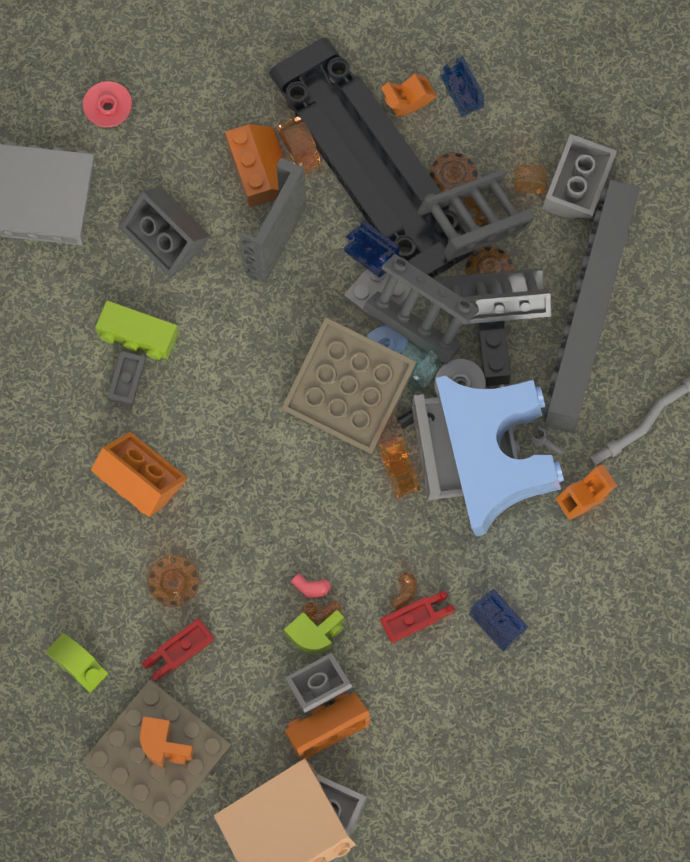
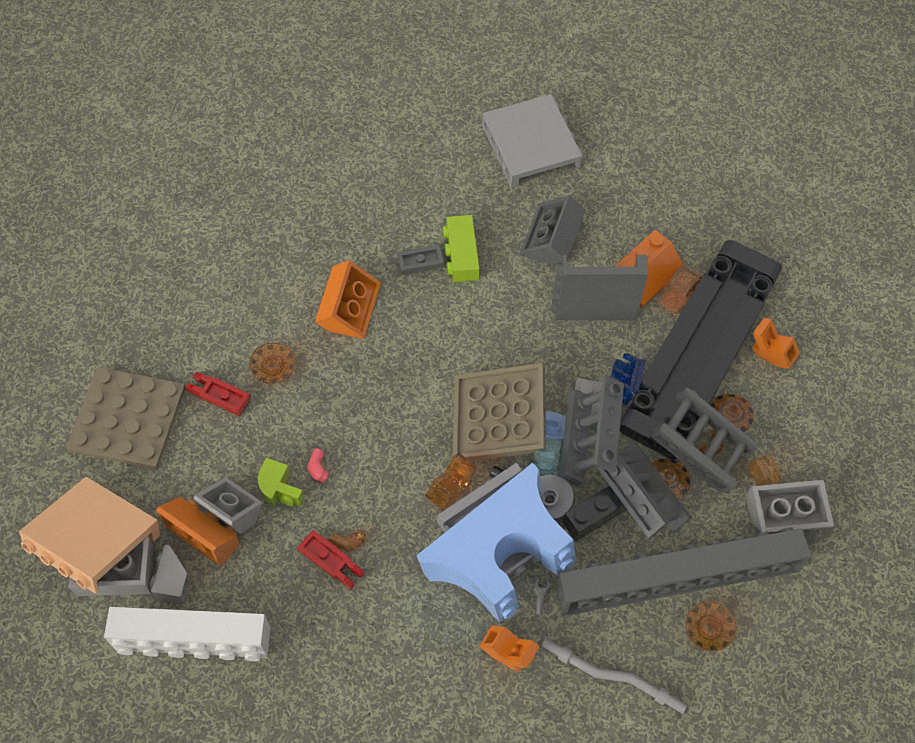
camera: 60 degrees right, 10 degrees down
(76, 662) = (171, 324): lime brick -> none
(107, 94) = (629, 144): coral dish -> none
(156, 744) = (127, 406): orange brick -> none
(320, 614) = (296, 480): clear orange arm -> none
(362, 772) = (171, 578): none -> light grey slope
(432, 774) = (188, 633): none -> white brick
(463, 87) = (809, 384): clear blue hinge -> none
(498, 620) = (357, 626): clear blue hinge -> none
(651, 298) = (719, 618): none -> clear orange dish

